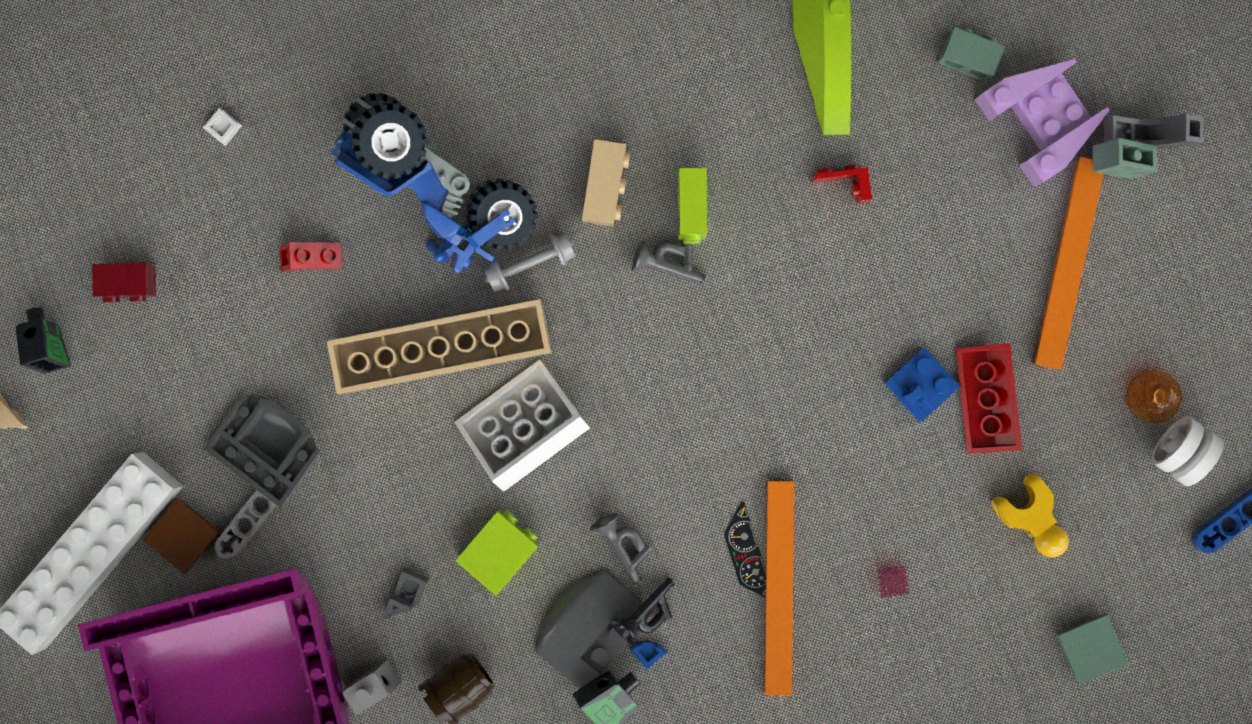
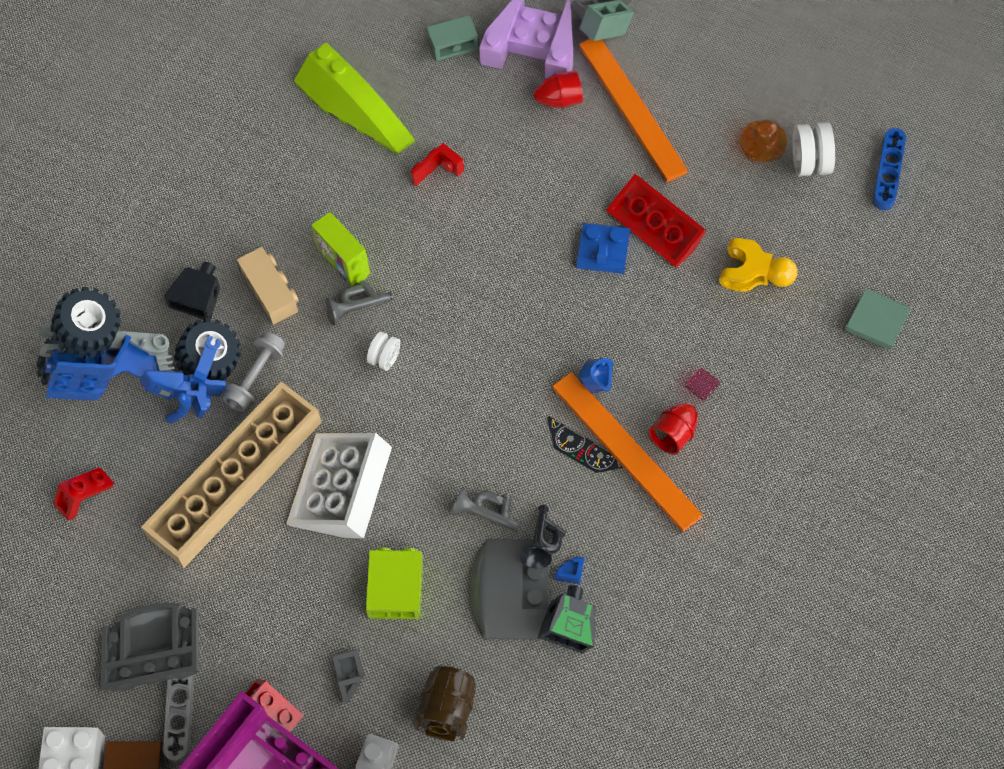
camera: 35 degrees left, 25 degrees down
(323, 572) = (274, 704): none -> bracket
(539, 137) = (194, 291): none -> black torso
(652, 333) = (383, 351): none -> white wheel
(810, 505) = (597, 374): none -> blue piece
(835, 607) = (680, 426): none -> red helmet
(1019, 197) = (560, 90): none -> red helmet

